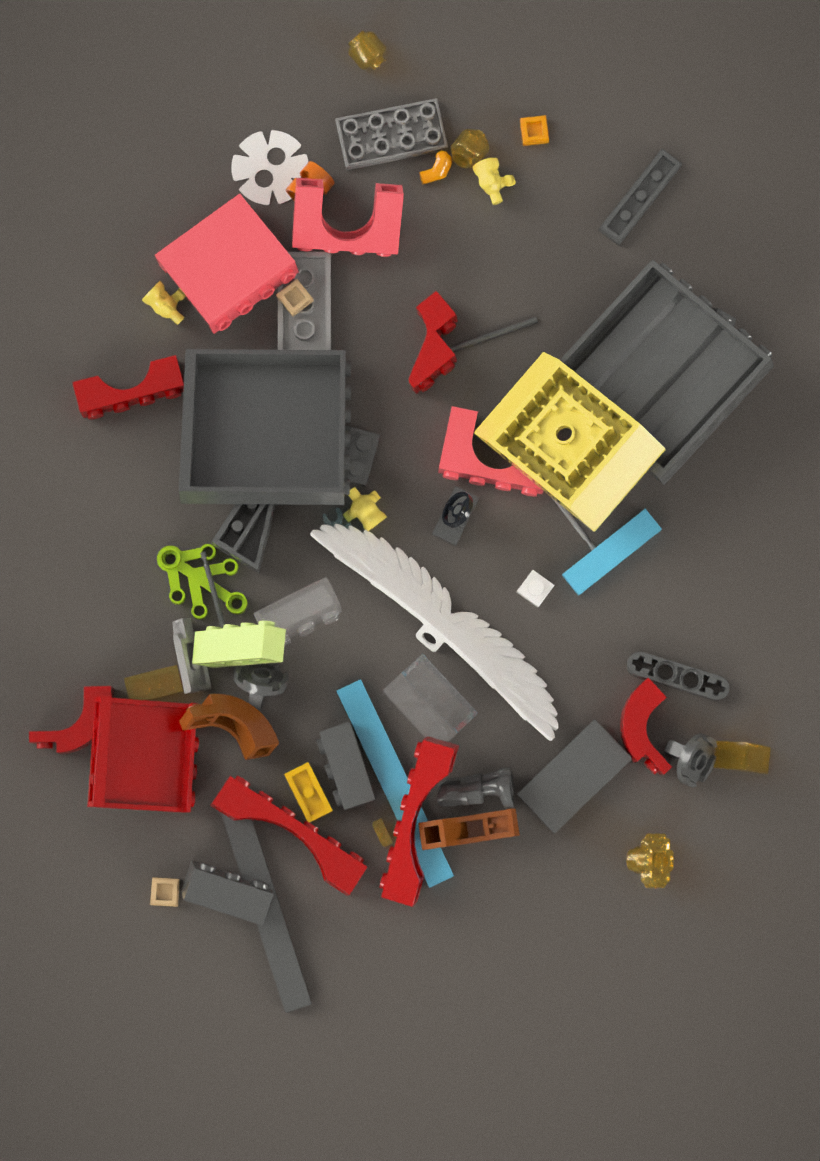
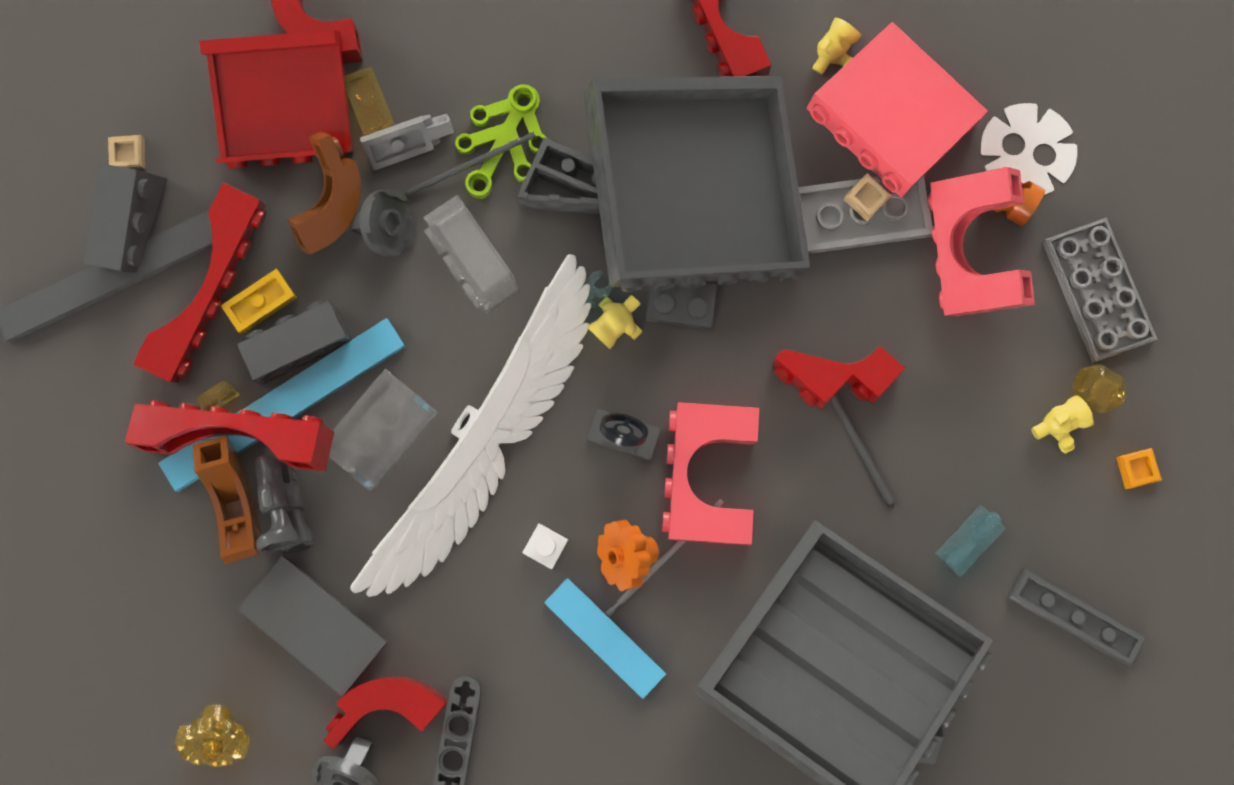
camera: 90 degrees right, 0 degrees up
(239, 645) = (416, 185): yellowish green brick -> none
(366, 50) = (1202, 242): clear yellow head -> none
(439, 169) = (1065, 355): light orange arm -> none
(551, 526) = (626, 554): none -> orange plant
(572, 264) = (970, 540): none -> clear light blue hinge
(589, 469) = (723, 606): light yellow slope -> none

